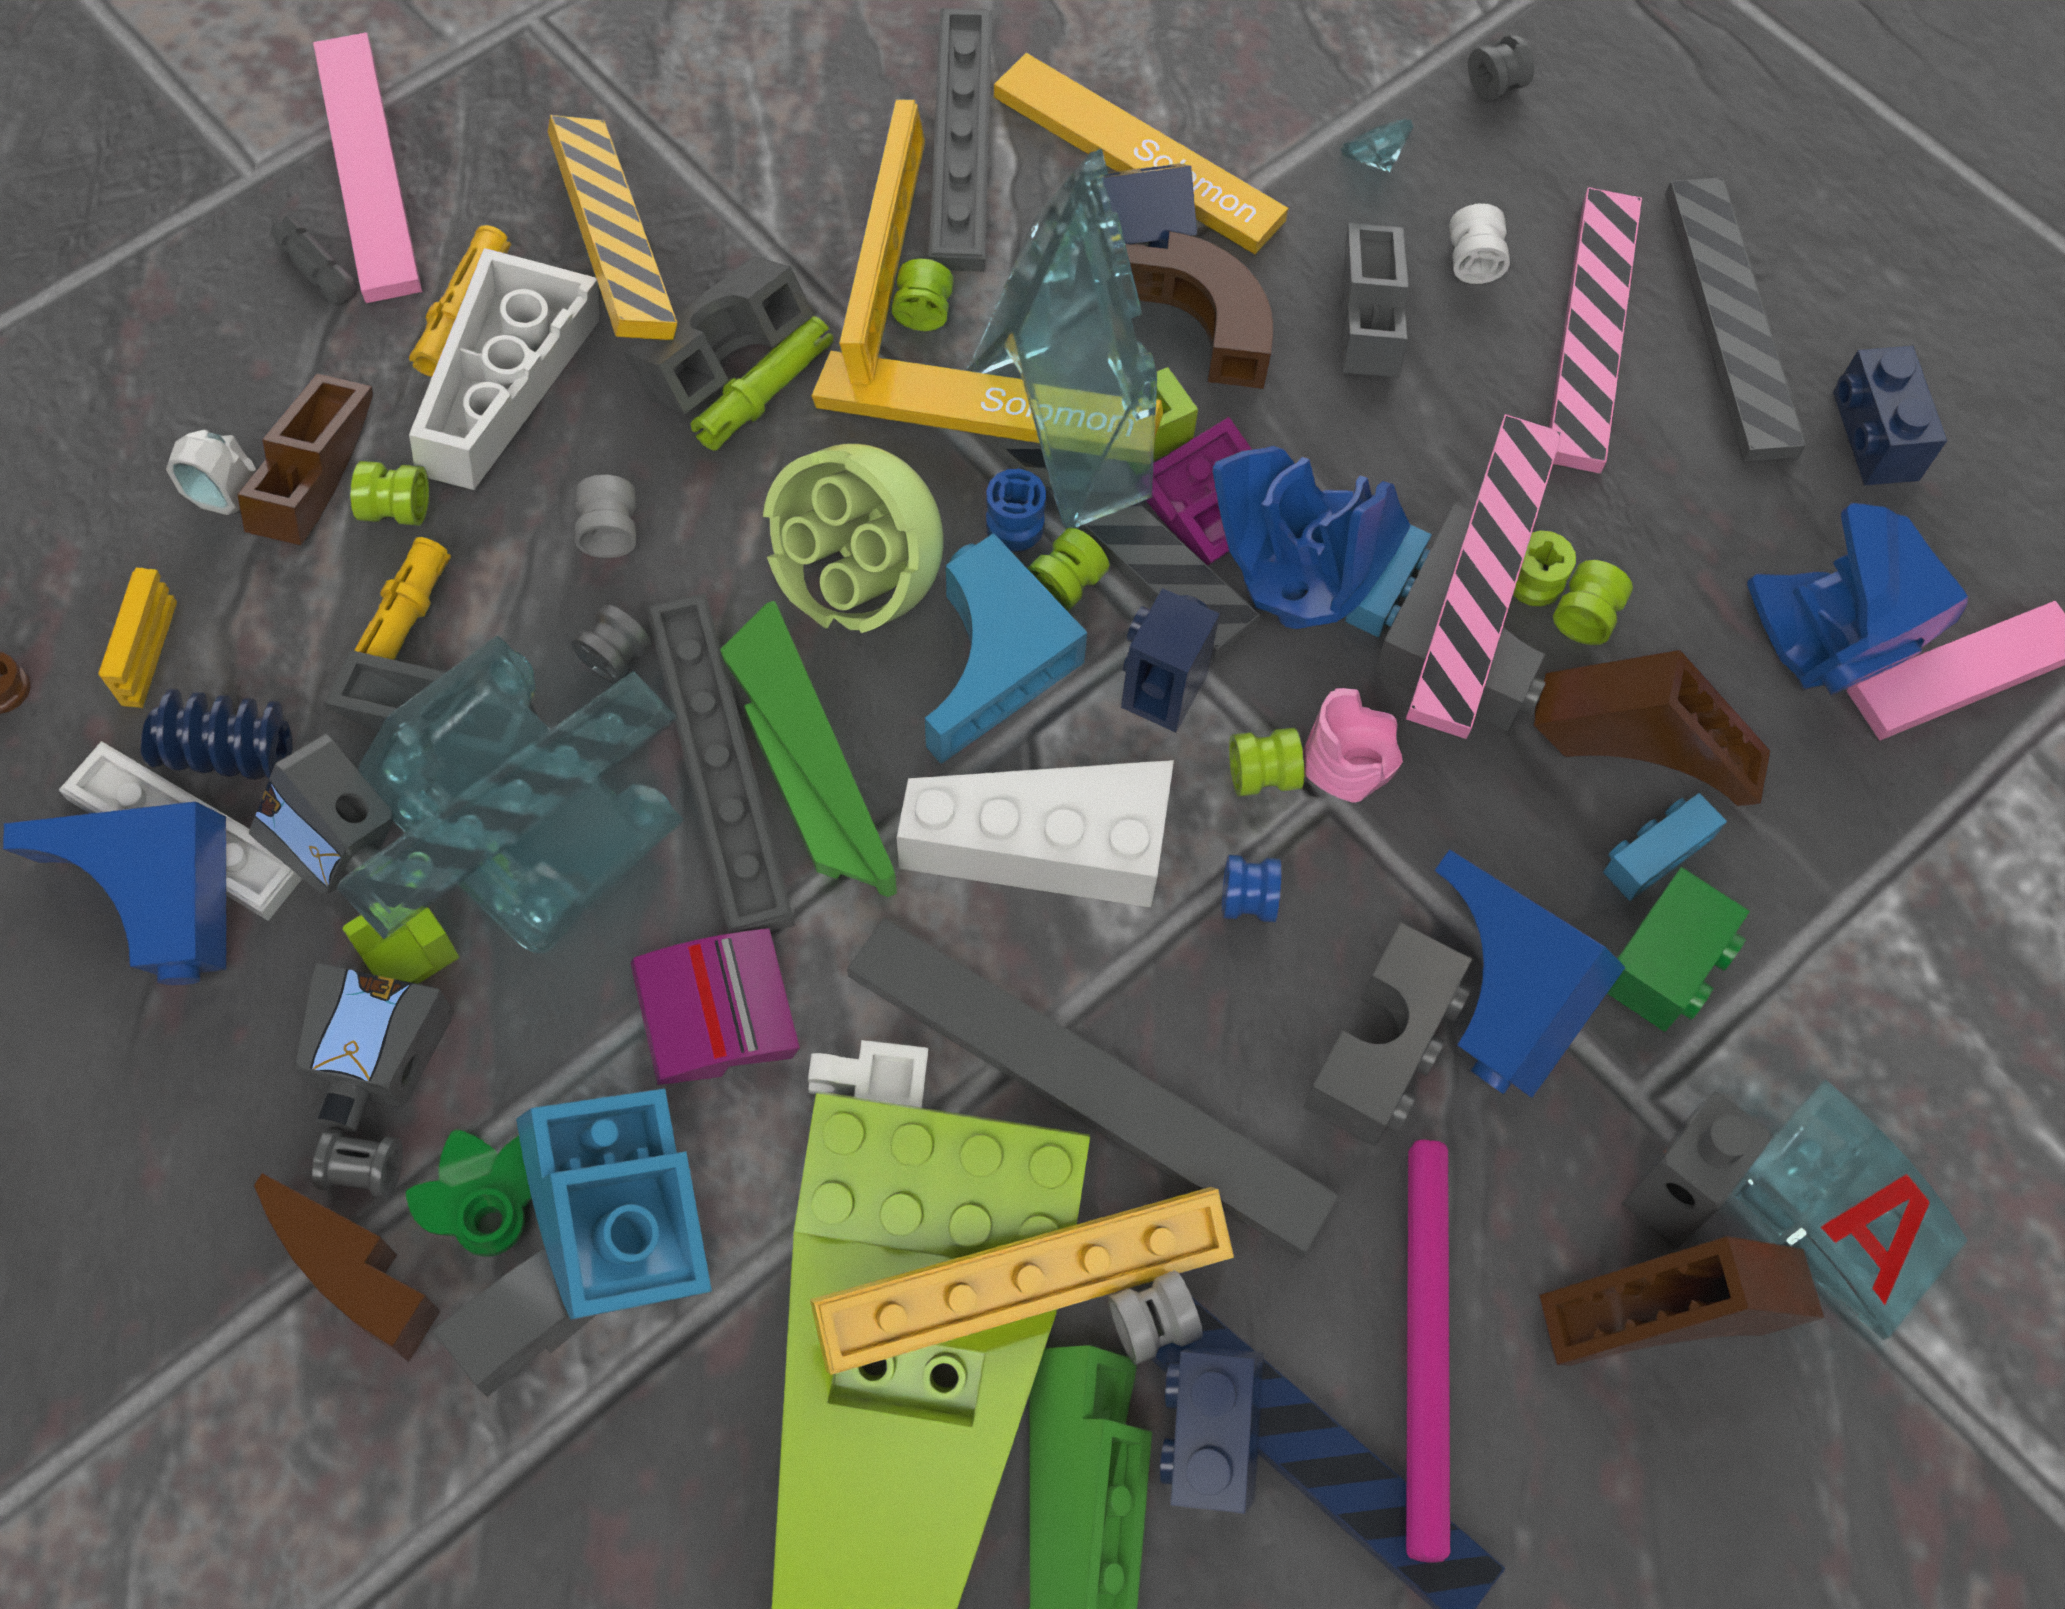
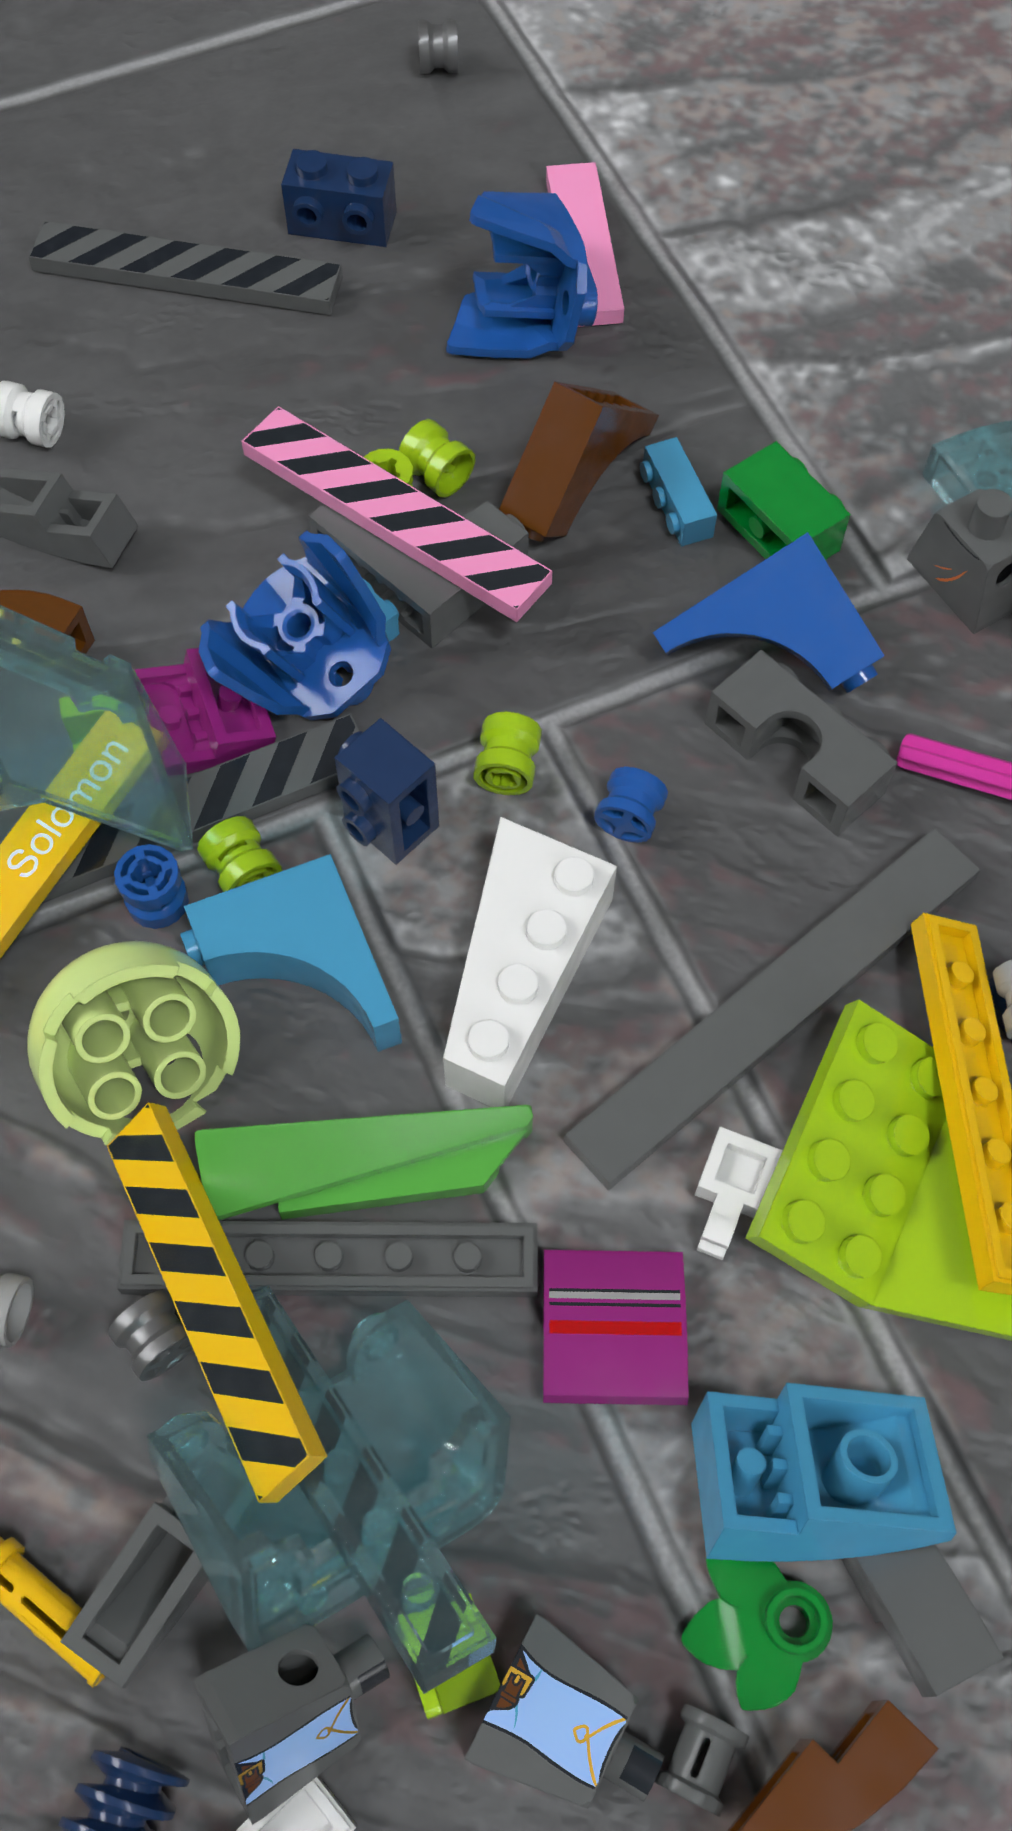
camera: 70 degrees left, 0 degrees up
(636, 665) = (216, 1306): none -> yellow tile
(1351, 747) = (521, 679): bright pink hair -> none
(1594, 329) = (144, 362): tile -> none

